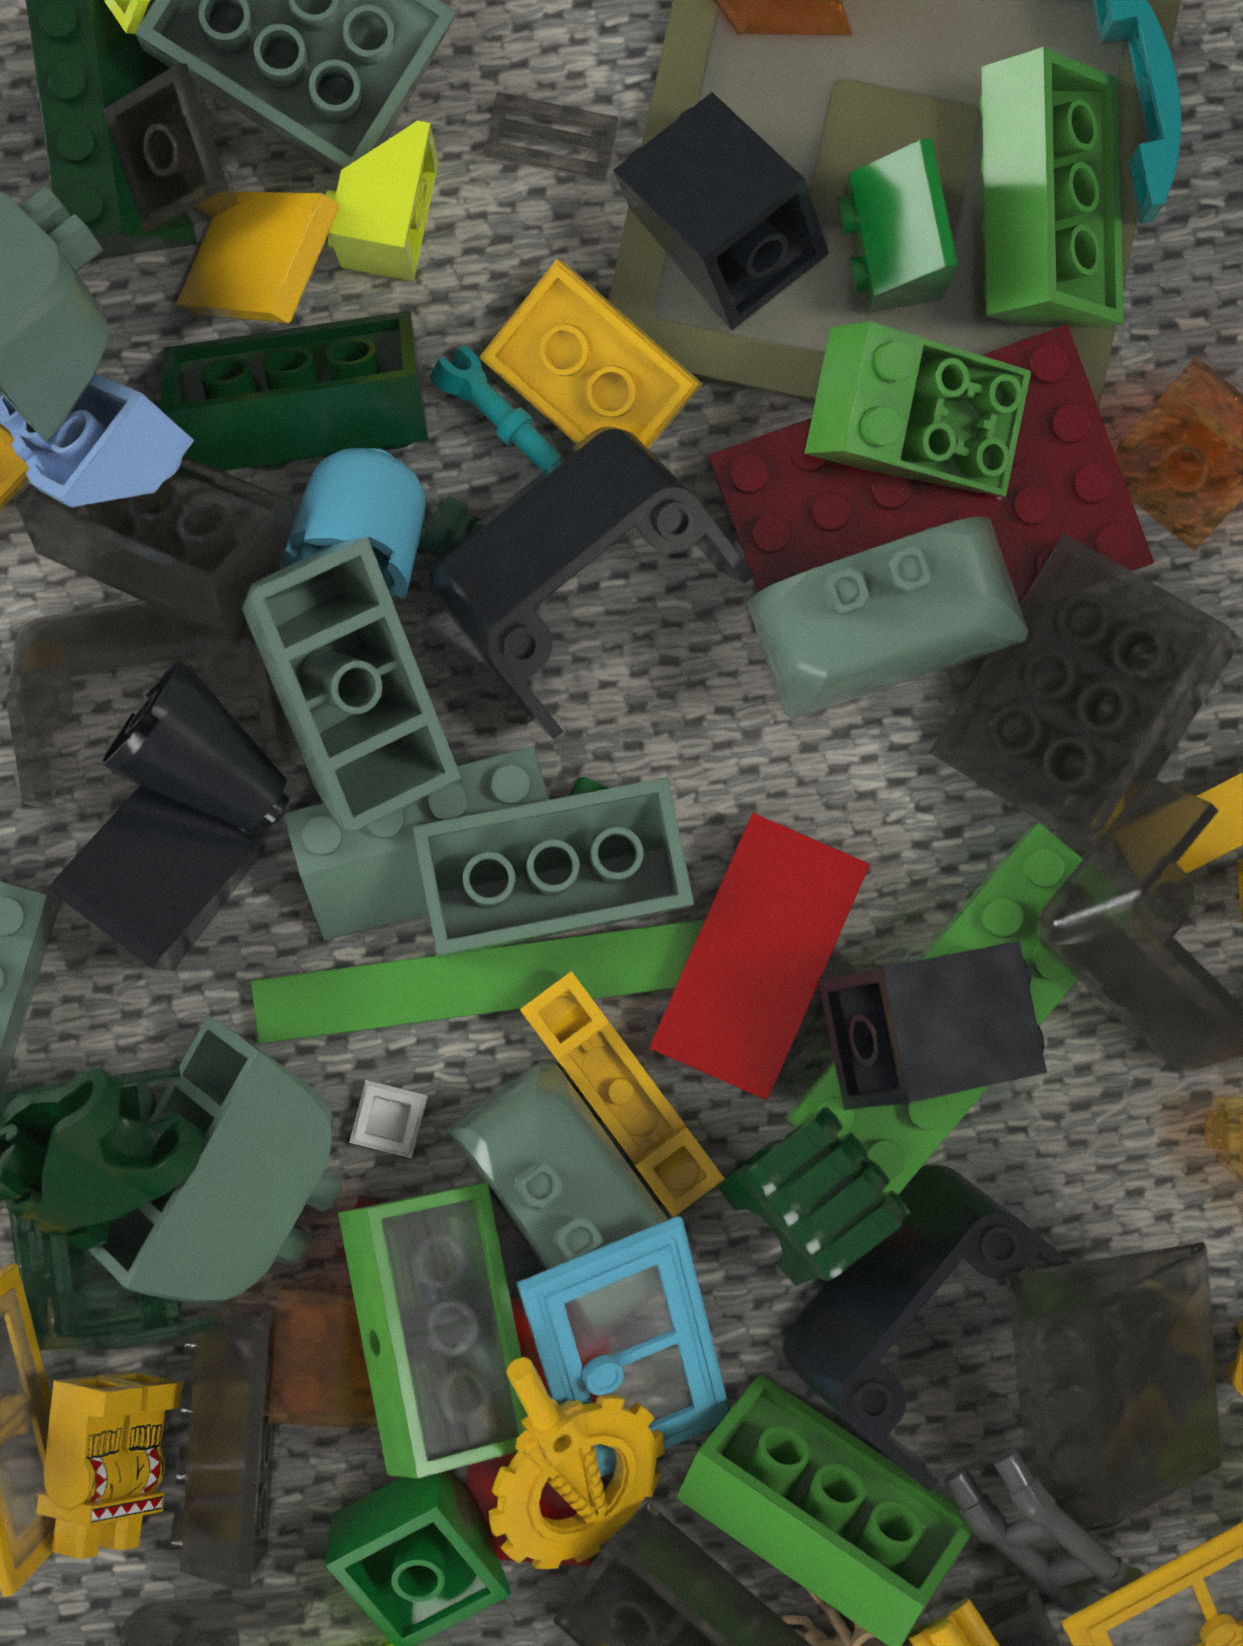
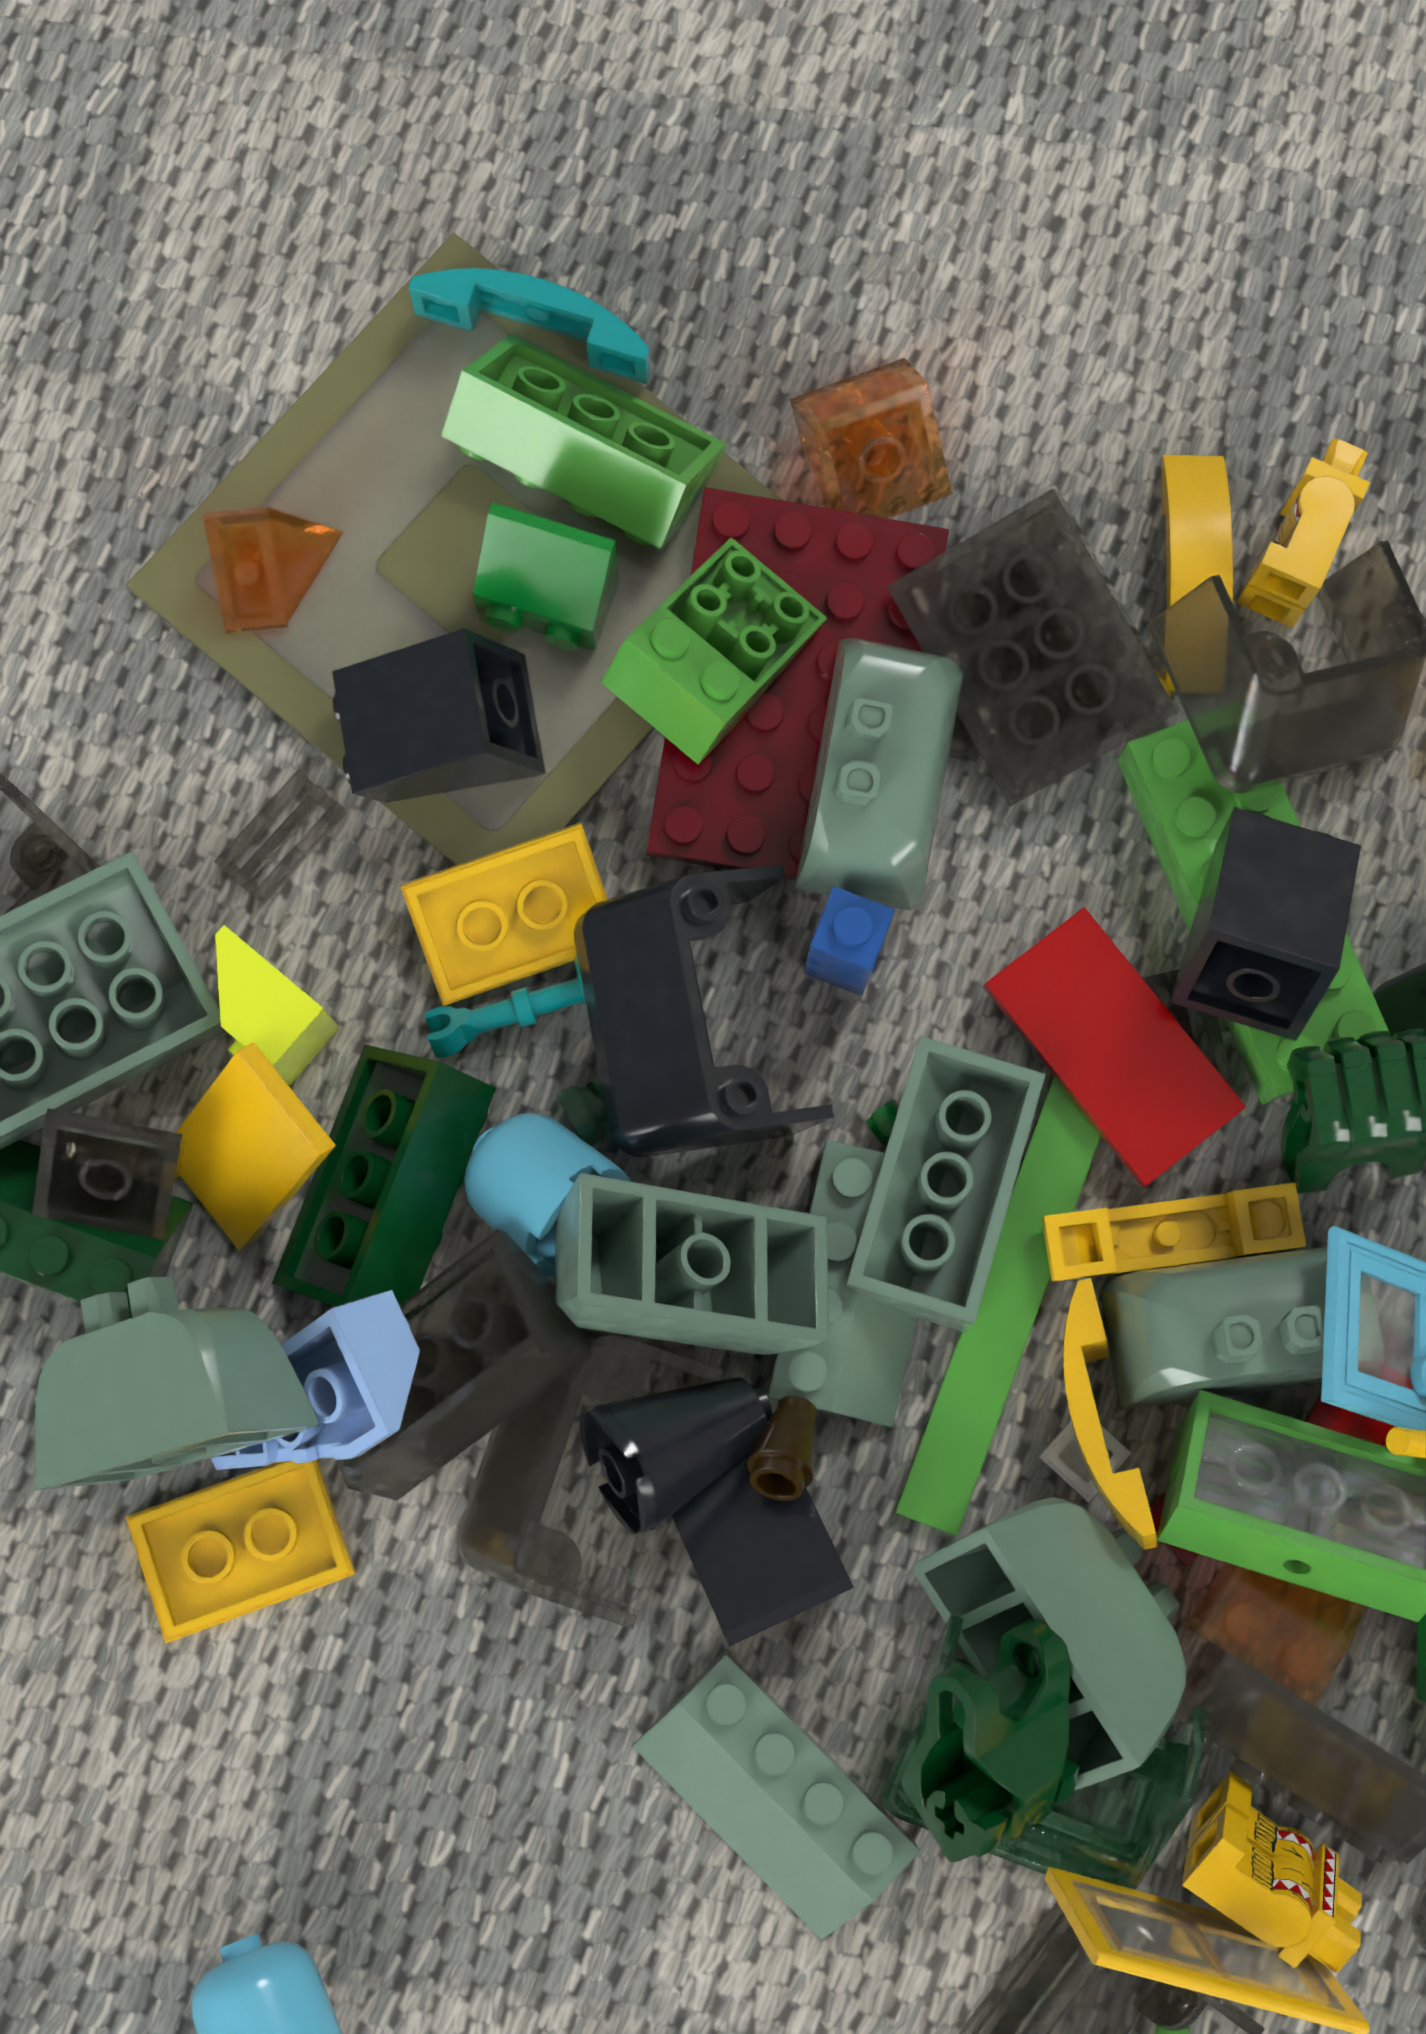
camera: 65 degrees left, 5 degrees down
(241, 851) = (785, 1452): none -> dark brown cone
(484, 1062) = (1123, 1490): none -> yellow slope
(719, 669) = (848, 940): none -> blue brick

